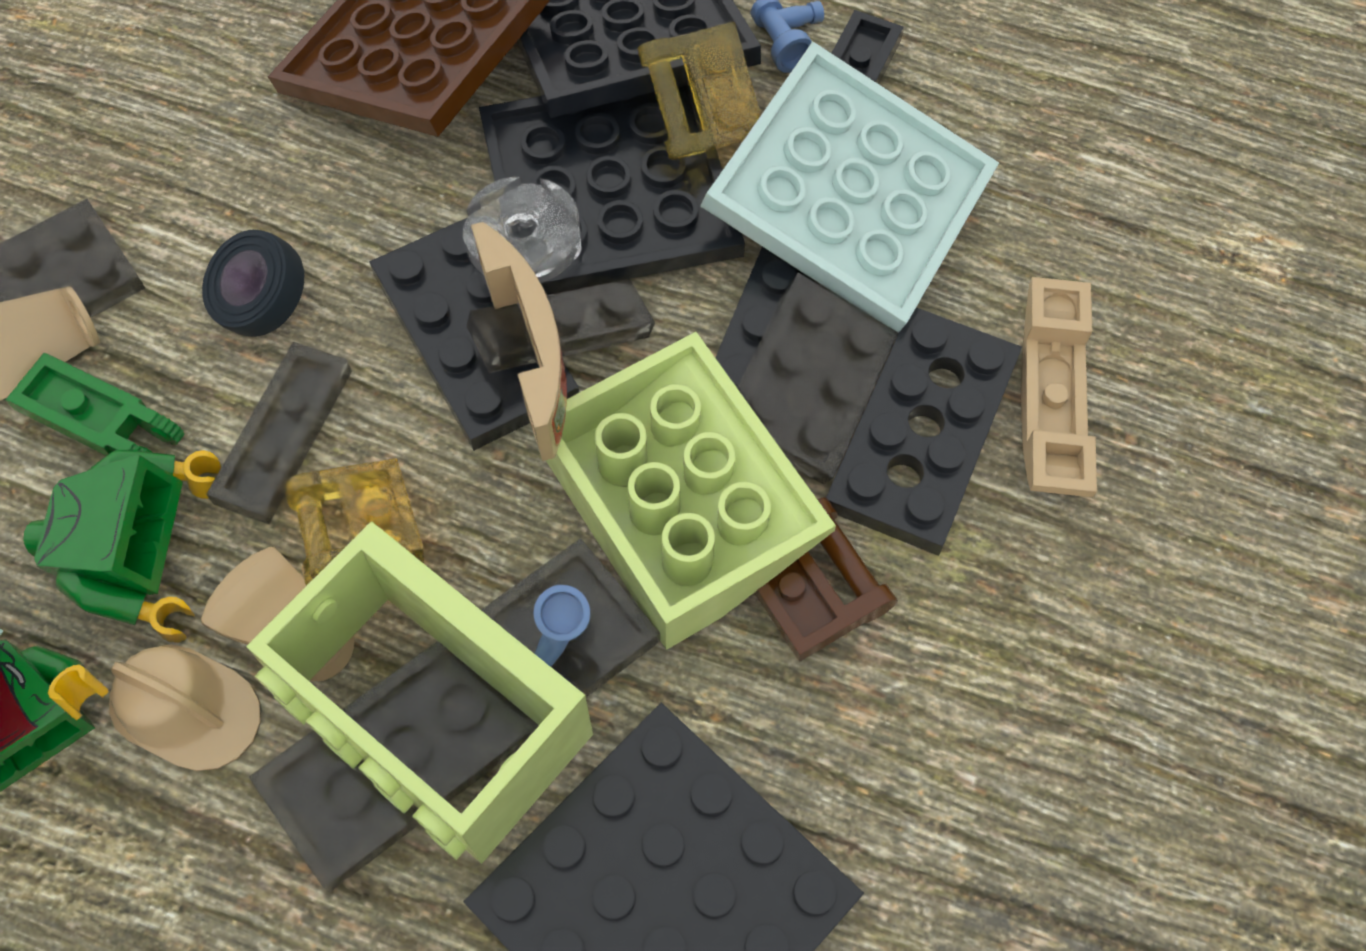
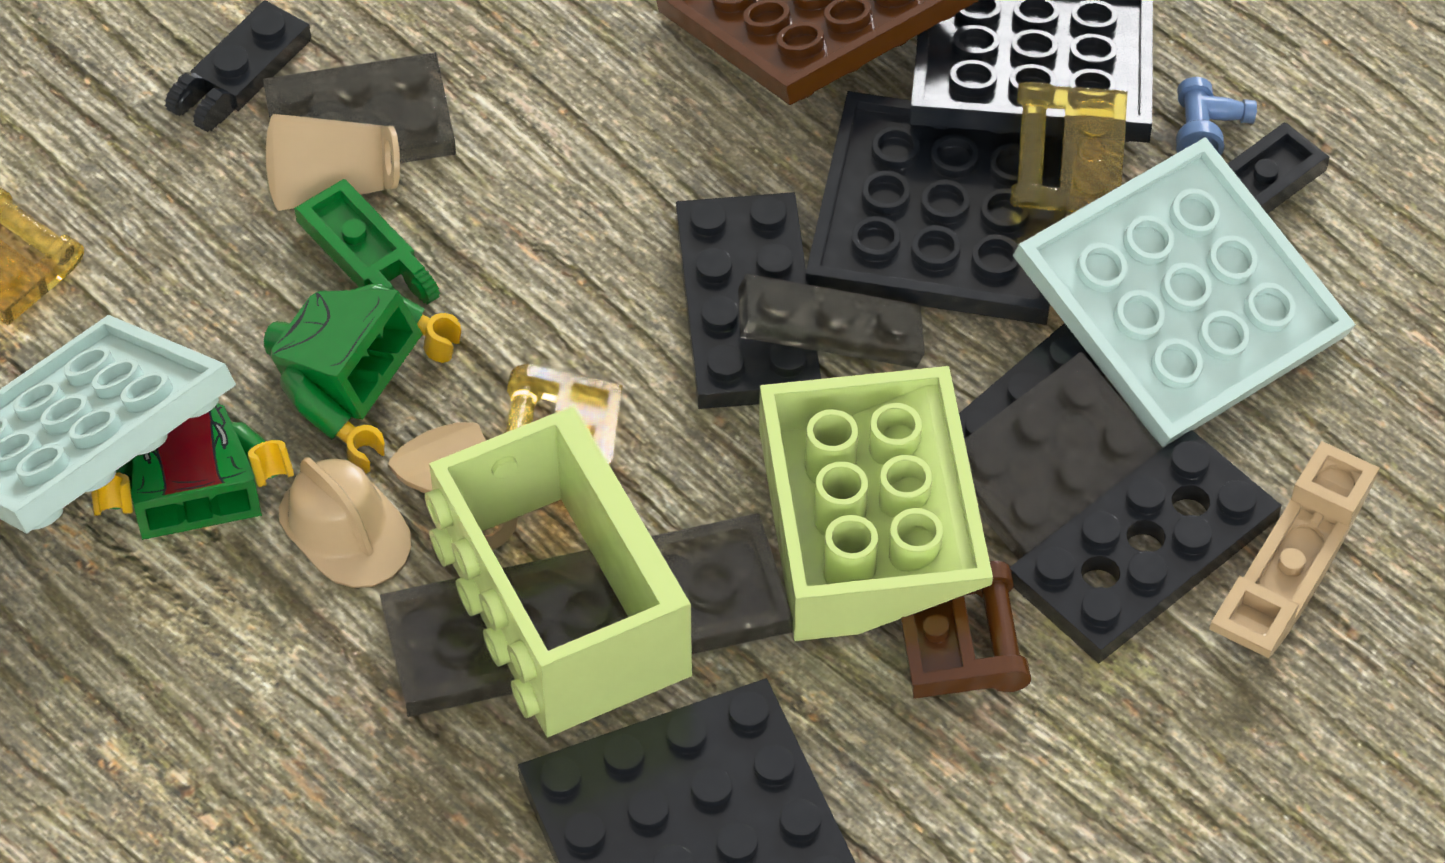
camera: 25 degrees right, 10 degrees down
(253, 283) = (558, 182): black wheel -> none
(279, 432) = (527, 324): clear smoke plate -> none
(514, 282) = (781, 359): tan slope -> none
(546, 206) = (826, 249): clear plate -> none
(561, 616) = (708, 556): medium blue piece -> none

